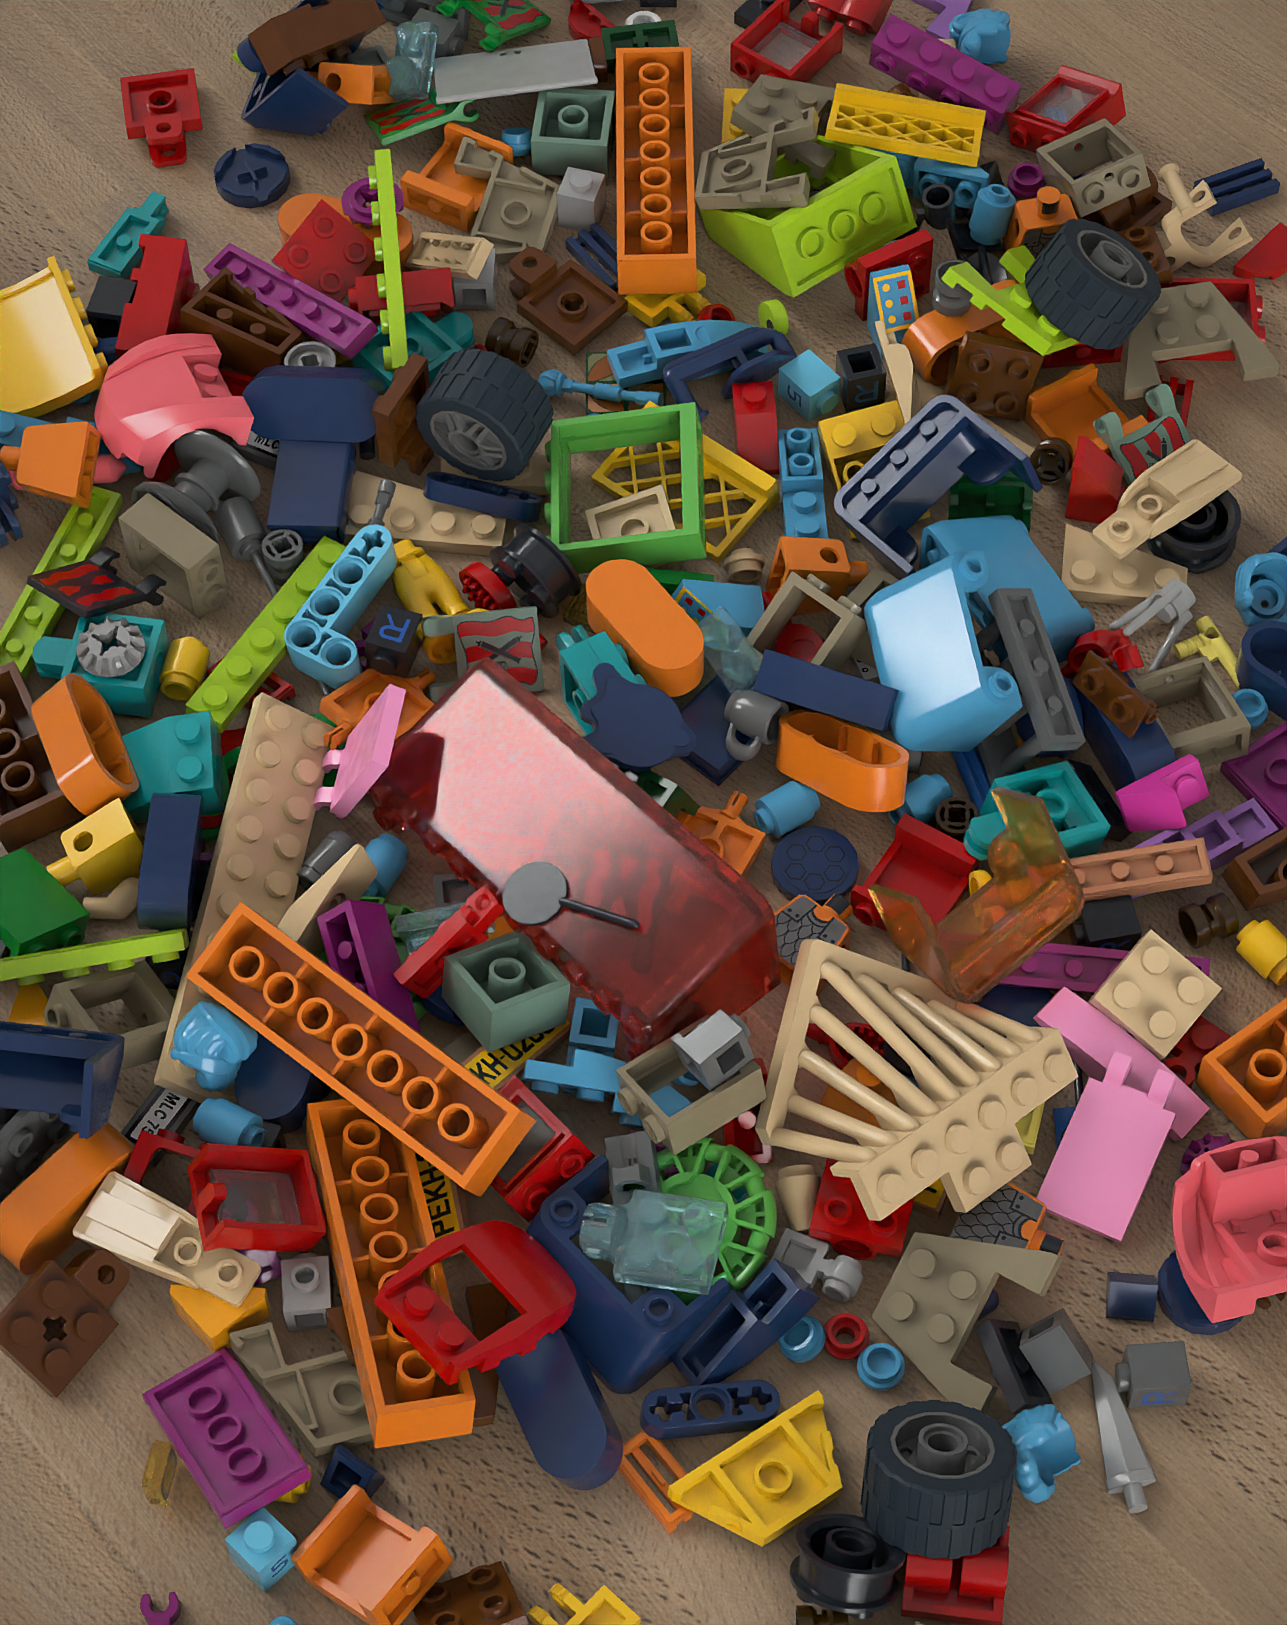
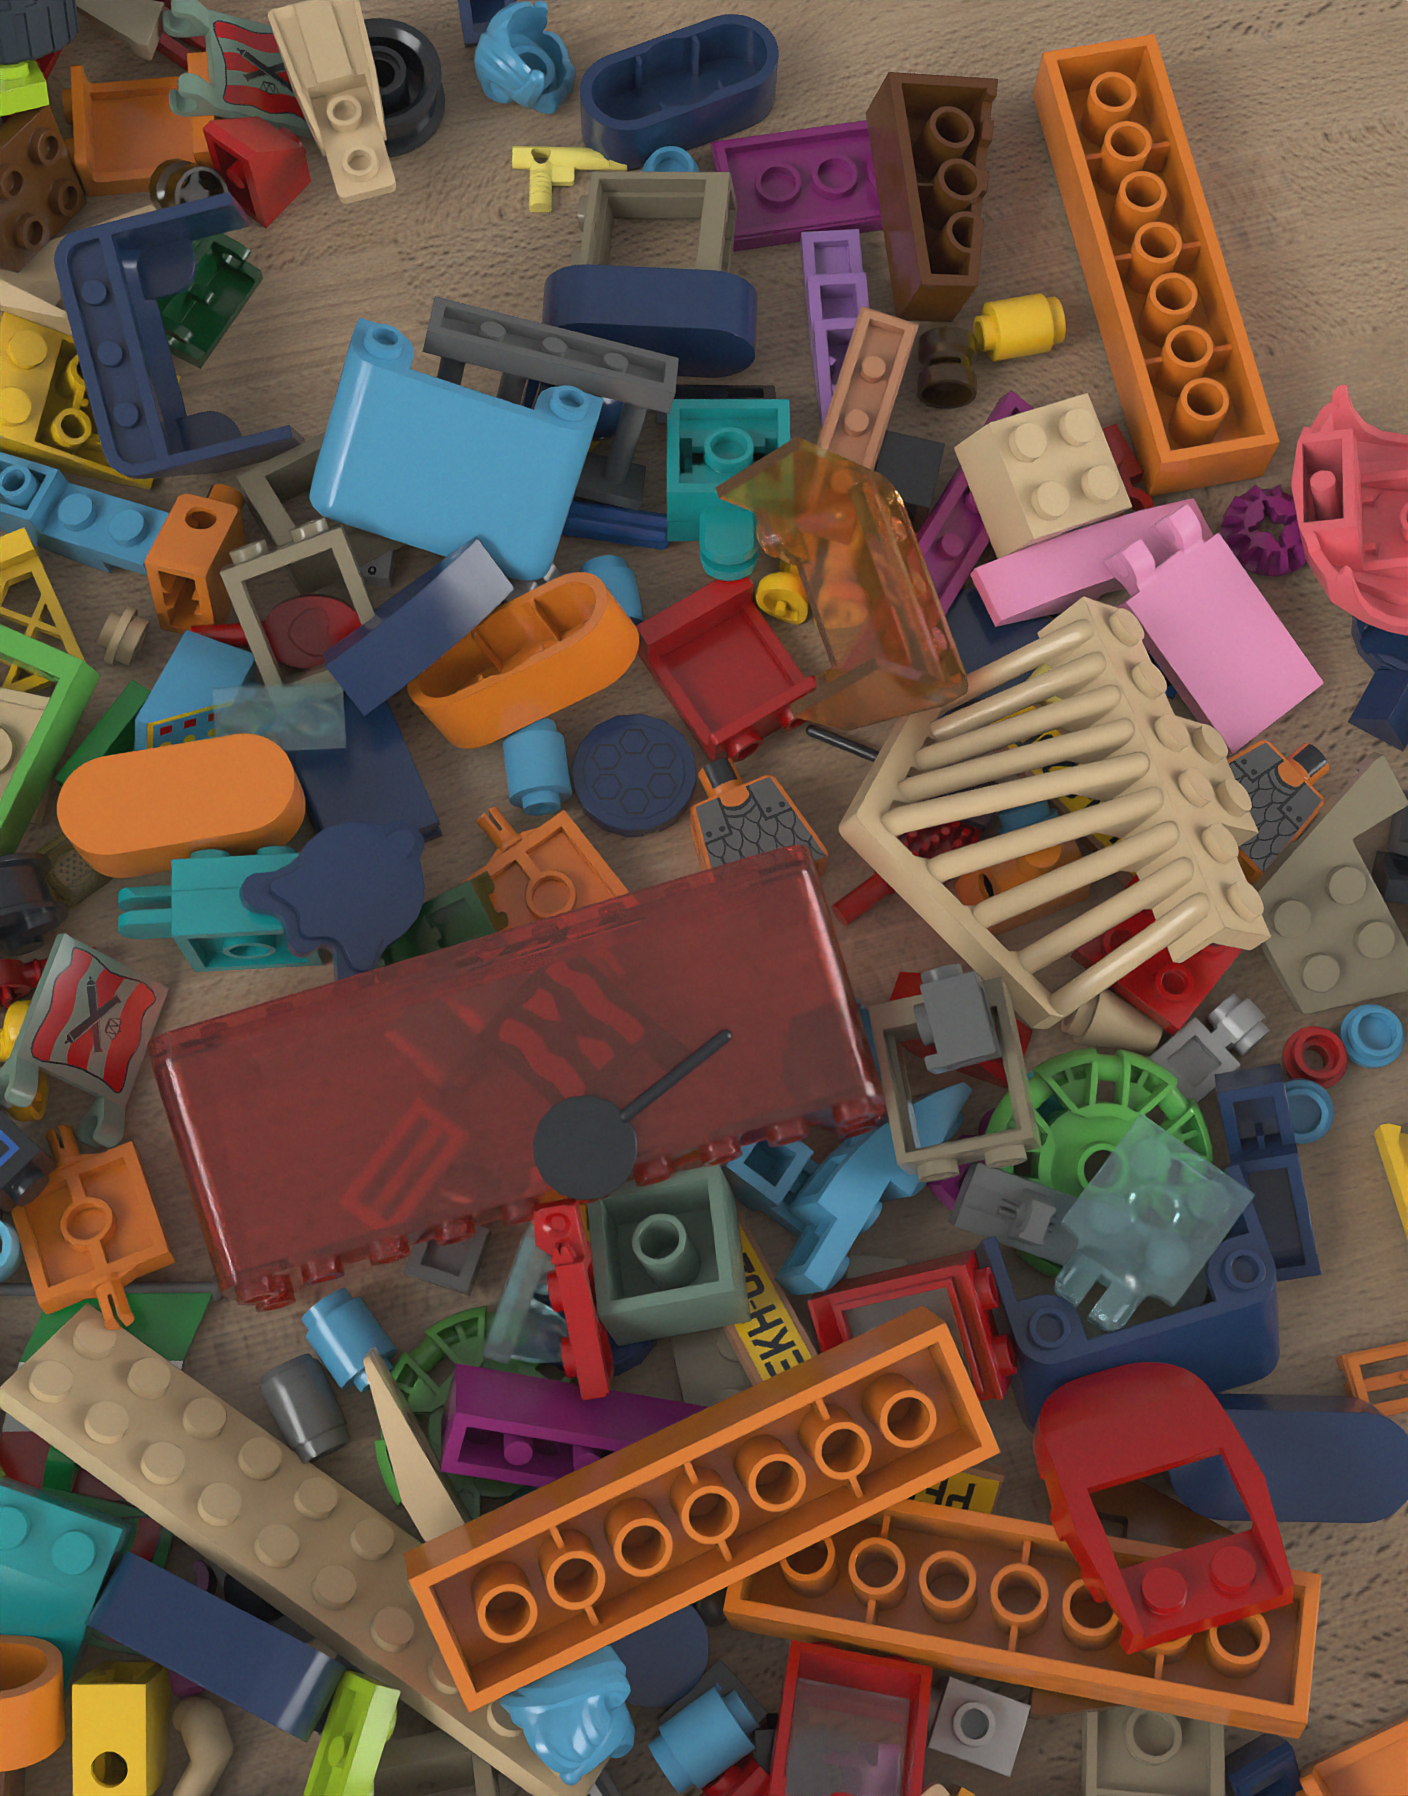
camera: 70 degrees left, 15 degrees up
(364, 755) = (202, 1283): bright pink tile -> none
(673, 1399) = (1380, 1228): dark blue beam -> none
(755, 717) = (398, 735): dark grey piece -> none
(954, 816) = (665, 589): dark brown wheel -> none
(1011, 563) = (299, 329): dark azure windscreen -> none
(1100, 577) = (384, 233): tan wing -> none
(1107, 645) = (514, 285): red piece -> none
(1112, 695) = (622, 293): reddish brown hinge -> none
(1161, 796) = (775, 323): dark pink slope -> none
(1167, 604) = (488, 176): light grey plant -> none

